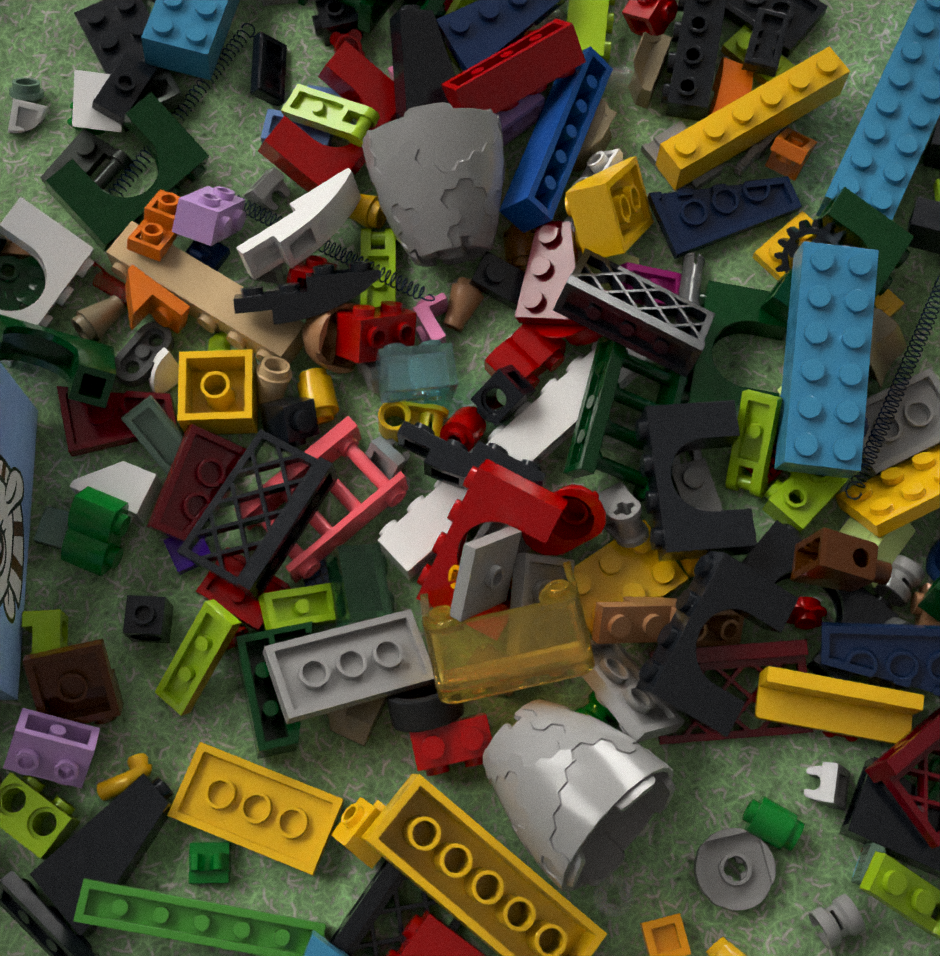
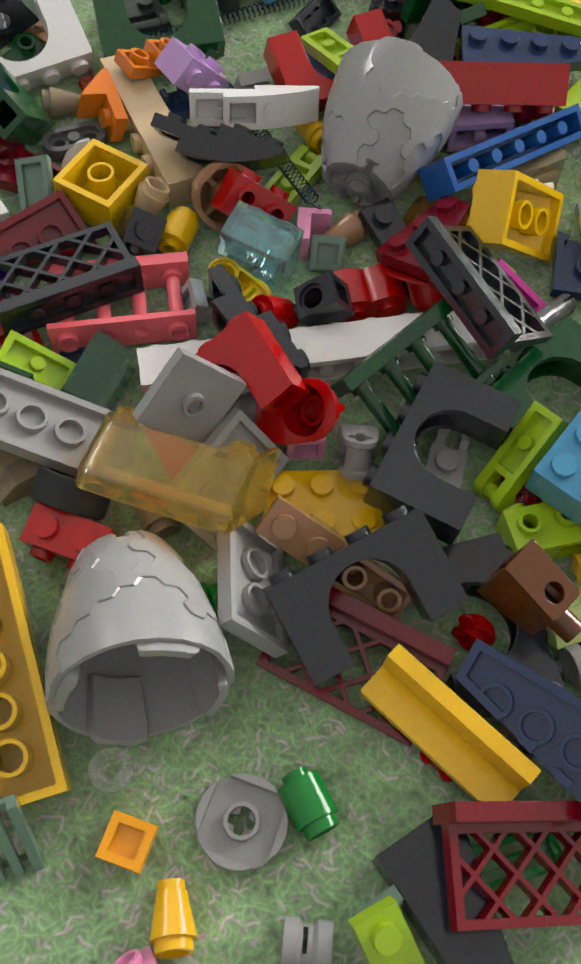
camera: 30 degrees right, 10 degrees down
(464, 334) = (327, 253): none -> sand green tile
(833, 785) = (393, 806): tile -> none

